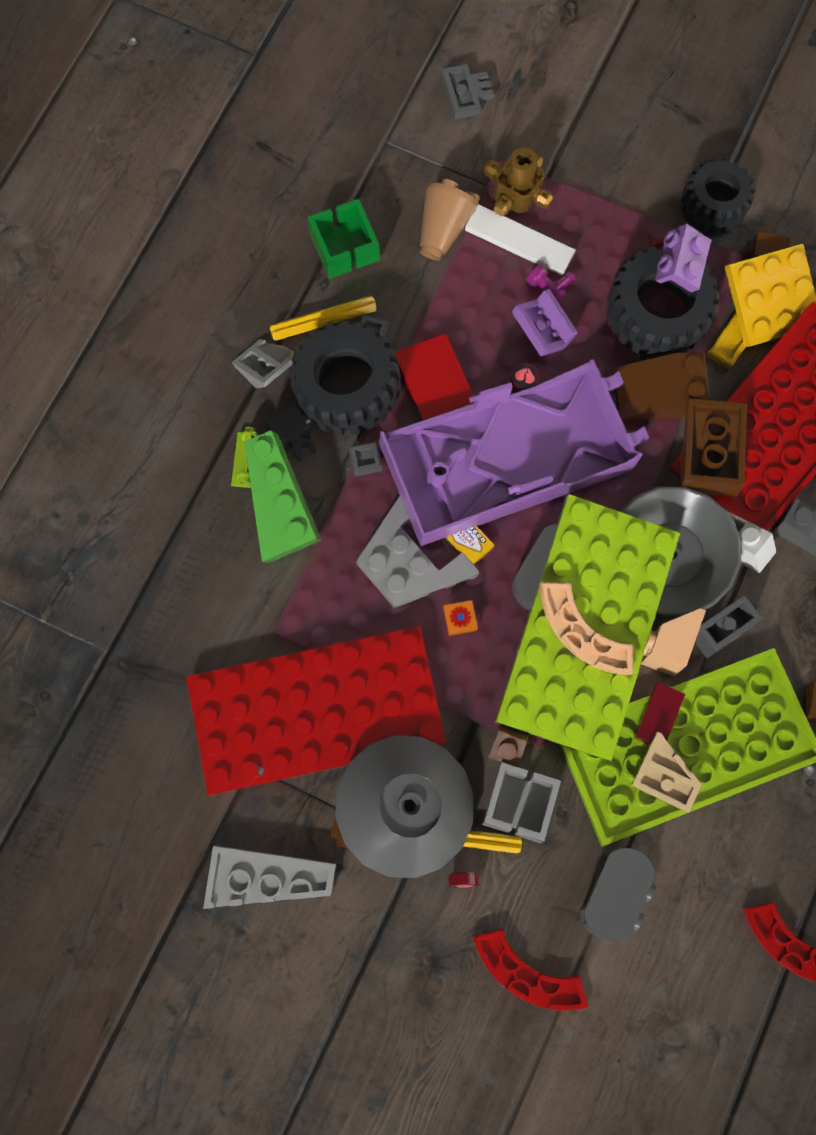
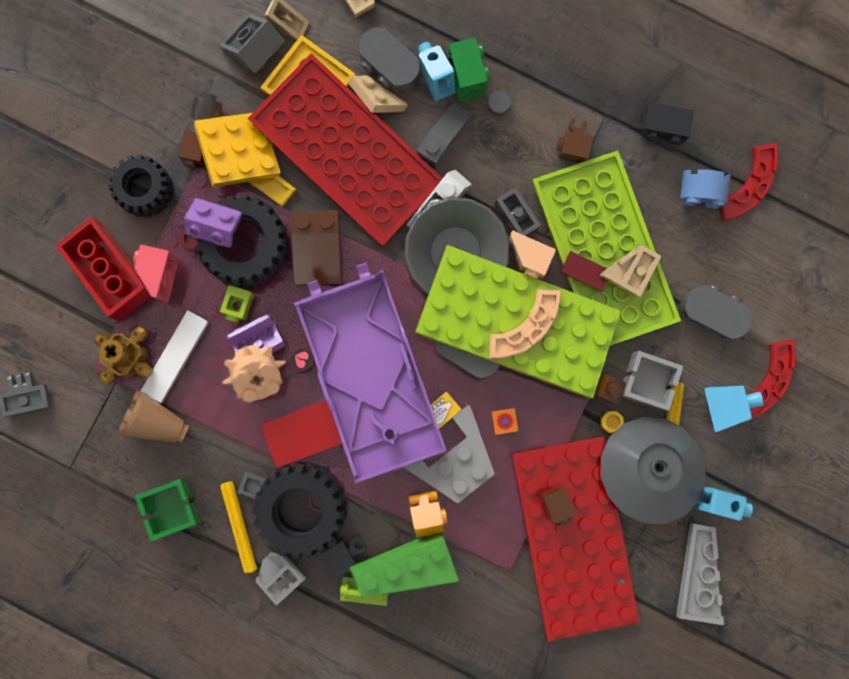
camera: 90 degrees left, 10 degrees up
(340, 524) = (427, 517): none -> light orange brick
(357, 678) = (558, 505): none -> reddish brown brick
(364, 890) = (724, 504): none -> medium azure torso
(365, 459) = (369, 494): dark grey tile -> none
(463, 880) = (704, 426): dark red tile -> none
(466, 755) = (611, 421): none -> yellow tile
(493, 912) = (730, 405): none -> medium azure torso
(506, 318) = (254, 373): none -> light nougat brick
(538, 277) = (223, 330): magenta piece -> none
(587, 300) = (232, 297): none -> lime brick
(616, 161) = (104, 269): none -> red brick
(618, 211) = (157, 270): none -> coral slope
(714, 447) = (373, 211): reddish brown slope -> none
(786, 875) = (705, 187): none -> medium blue brick

